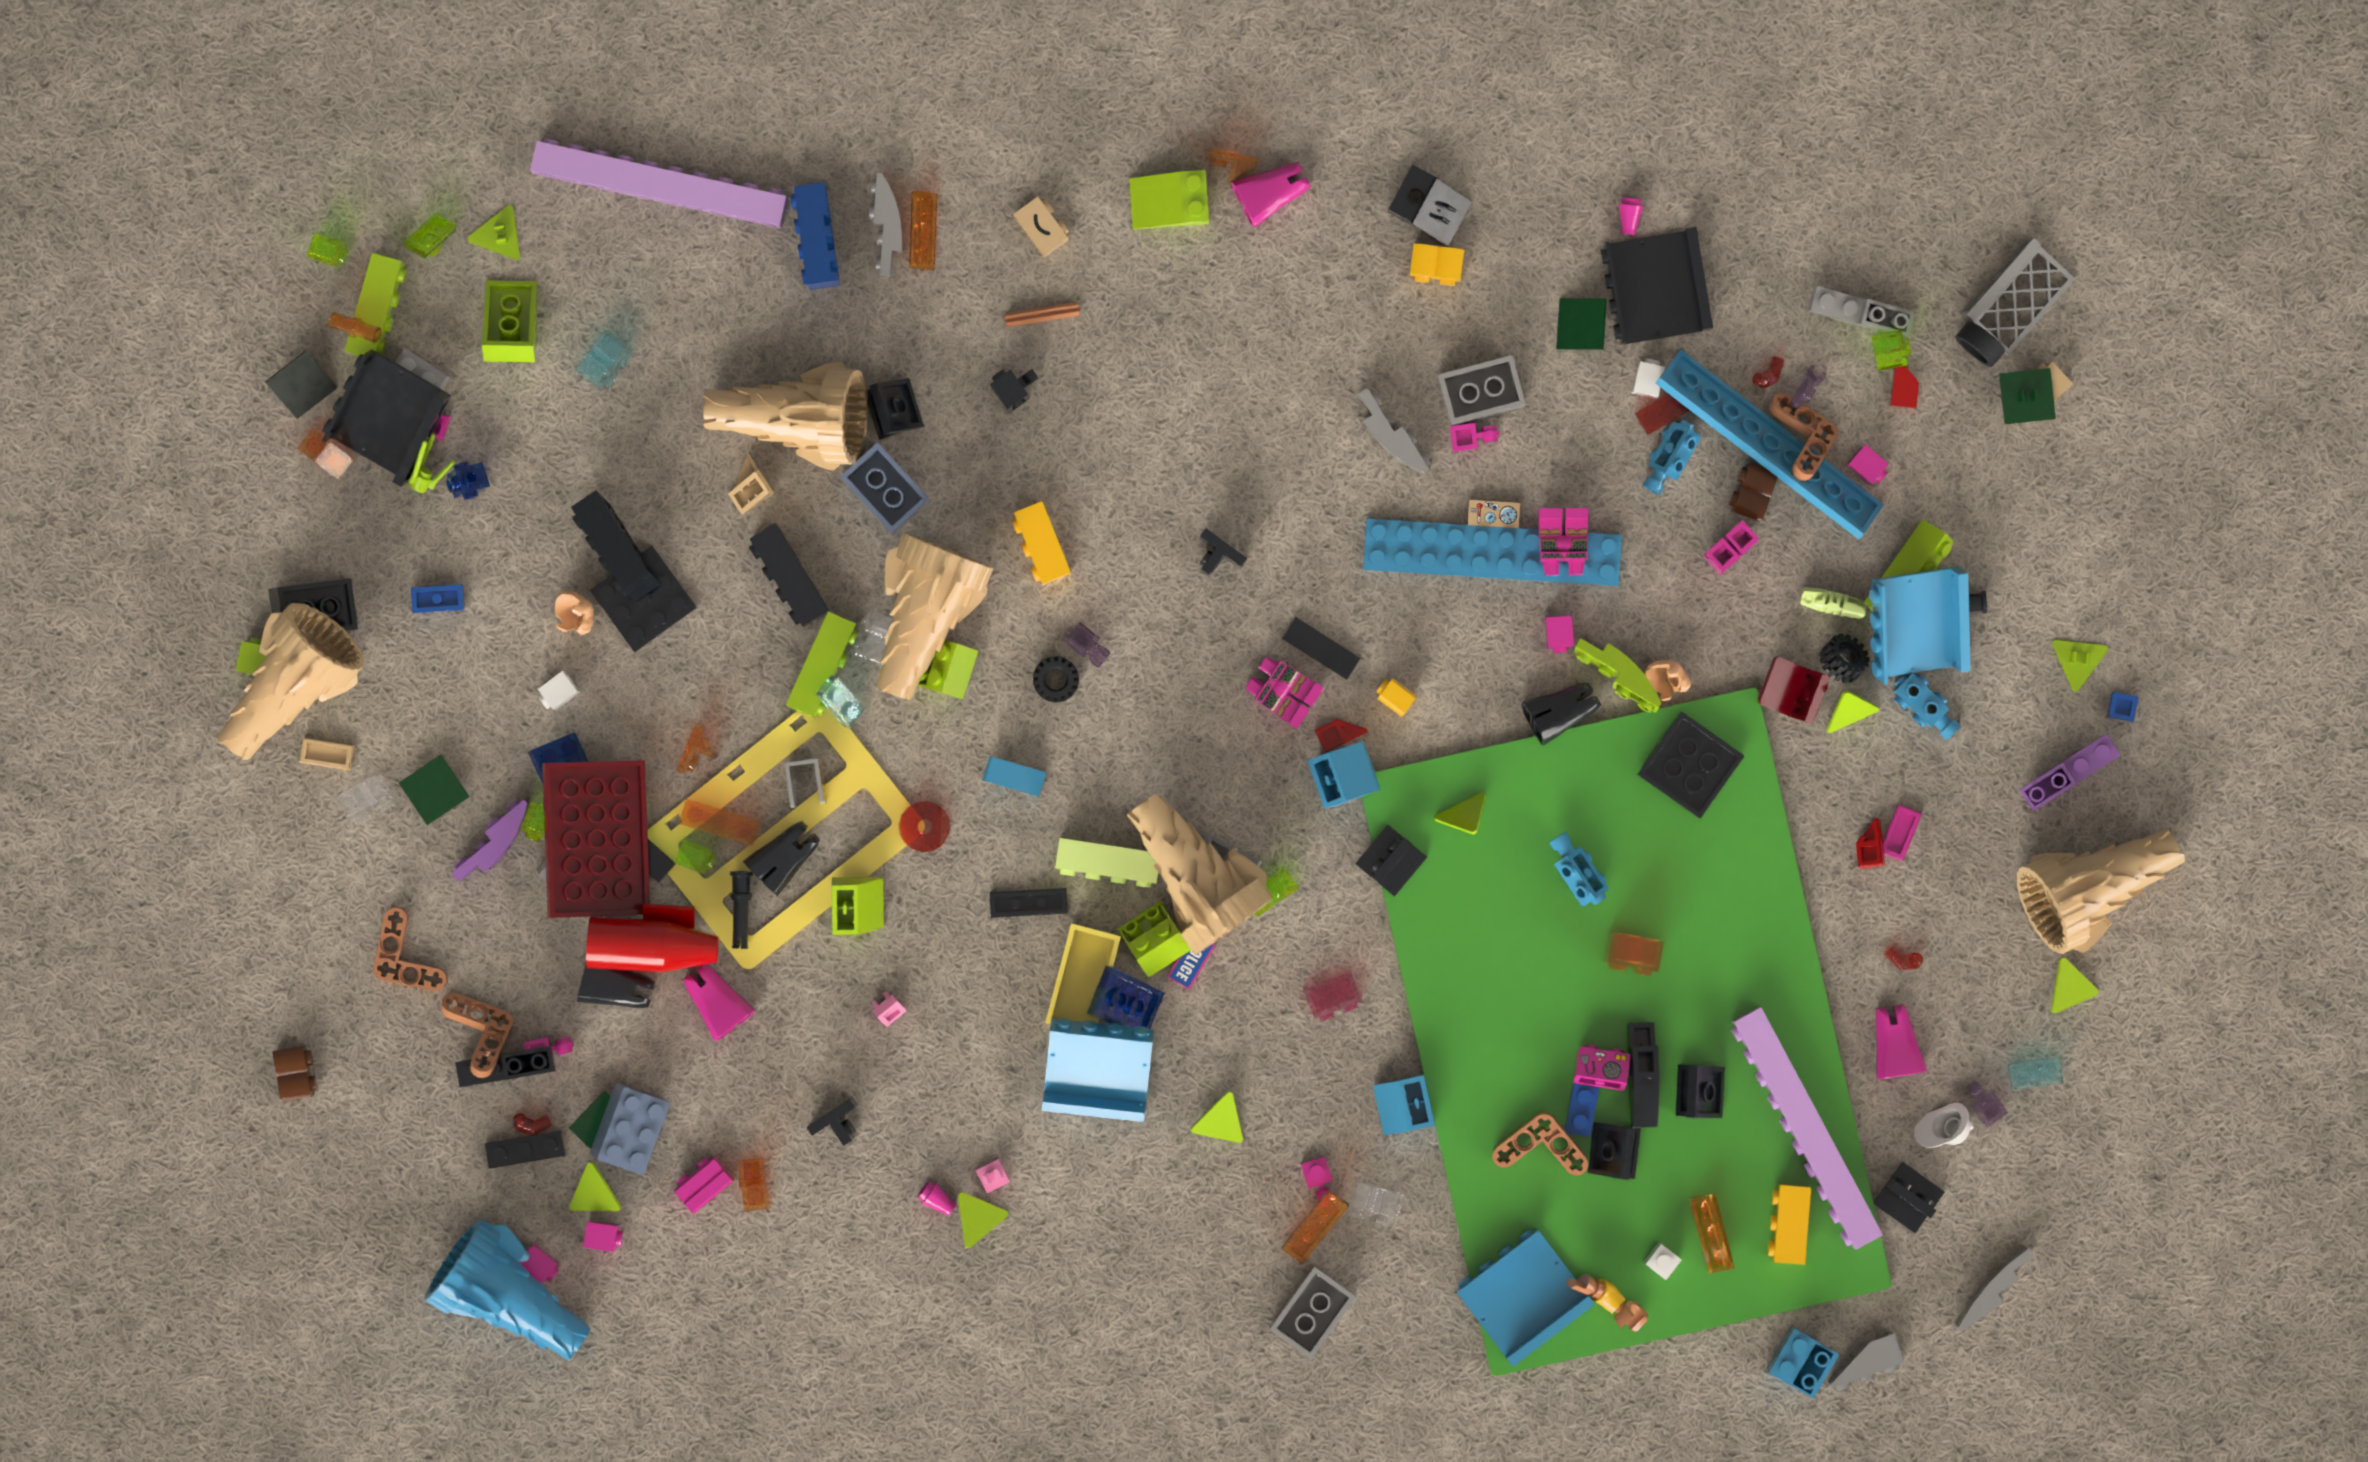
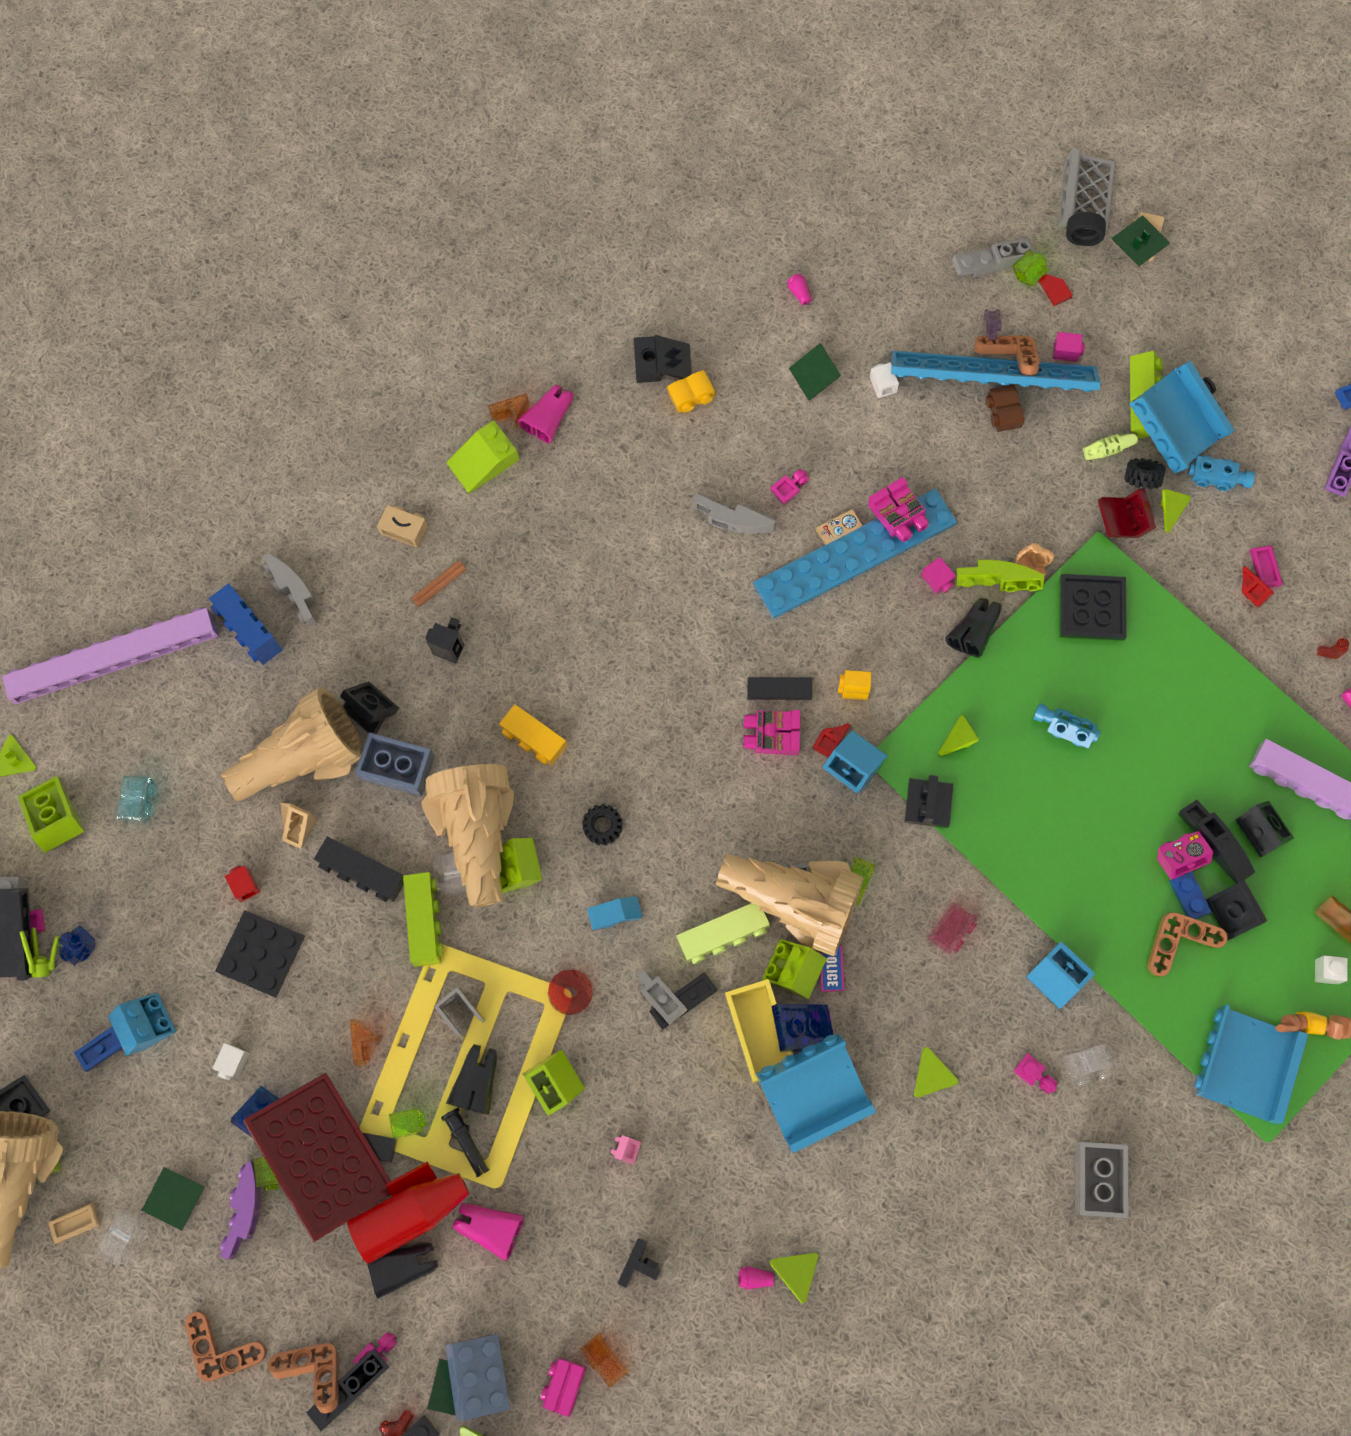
camera: 30 degrees left, 15 degrees down
(491, 598) = (141, 1023): none -> dark azure slope
(568, 606) = (211, 994): light nougat hair -> none
(614, 546) = (212, 924): black brick -> none
(664, 516) = (242, 883): none -> red brick
(719, 822) = (411, 1085): clear orange plate -> none
(840, 701) = (451, 936): clear light blue plate -> none
(923, 230) = (320, 577): clear orange plate -> none
(992, 1176) = (787, 1231): bright pink tile -> none
(1008, 887) = (661, 997): none -> light grey hinge
(1085, 642) = (608, 785): clear purple plate -> none
(1222, 549) = (663, 660): black bracket -> none
(1315, 1226) = (1058, 1111): clear orange plate -> none
(1481, 390) = (776, 450): light grey brick -> none
(1633, 952) = (1148, 756): clear orange brick -> none
(1657, 287) = (850, 321): black panel -> none
(1660, 413) = (907, 395): clear red plate -> none
(1672, 455) = (933, 417): dark azure brick -> none
(1731, 547) = (1018, 444): dark pink hips -> none
(1770, 376) = (963, 331): clear red arm -> none
(2078, 660) = (1297, 386): lime piece -> none

